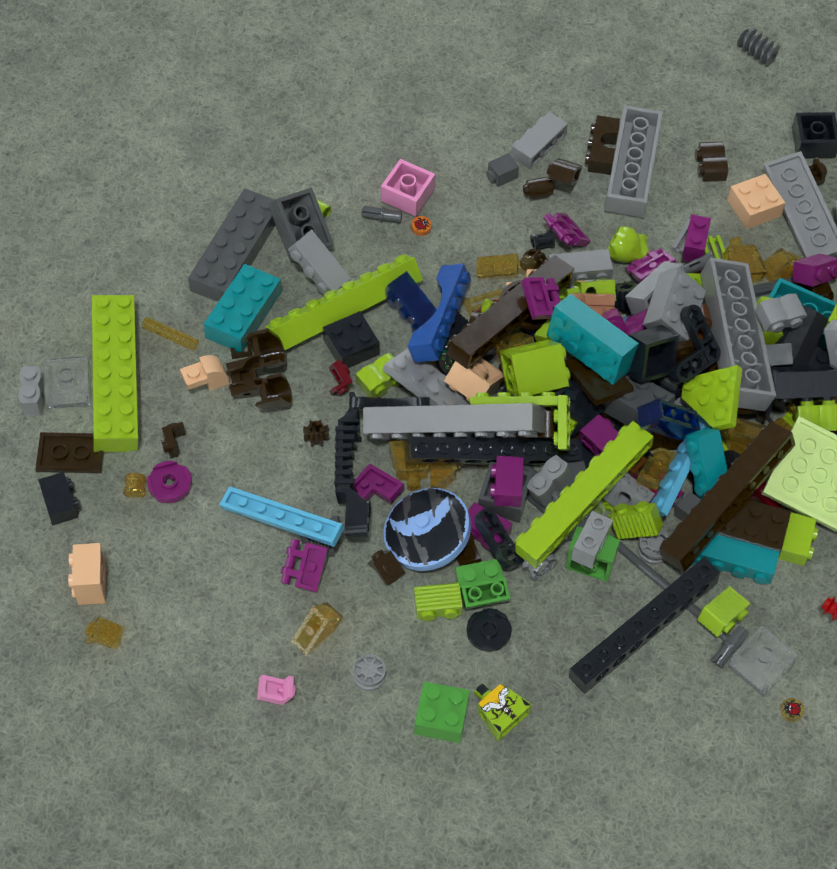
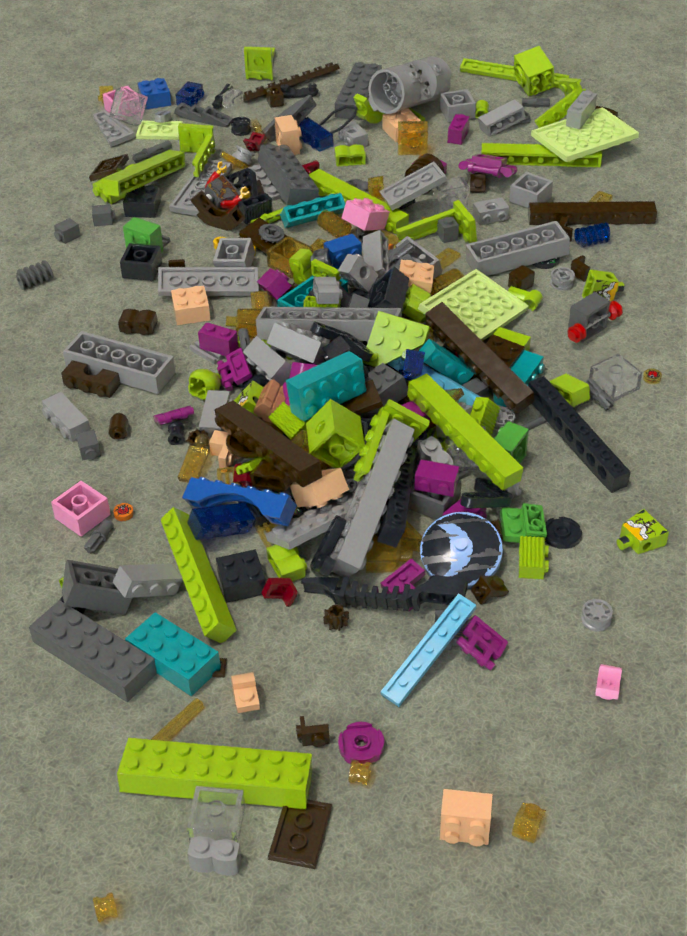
camera: 75 degrees left, 15 degrees down
(58, 498) = (360, 844): black brick -> none
(268, 353) = (259, 658): dark brown piece -> none
(316, 627) = (548, 644): clear yellow slope -> none
(441, 712) = (642, 569): bright green brick -> none
(538, 294) = (270, 415): magenta plate -> none
(564, 171) = (113, 402): dark brown brick -> none
(592, 539) = (512, 429): light grey brick -> none

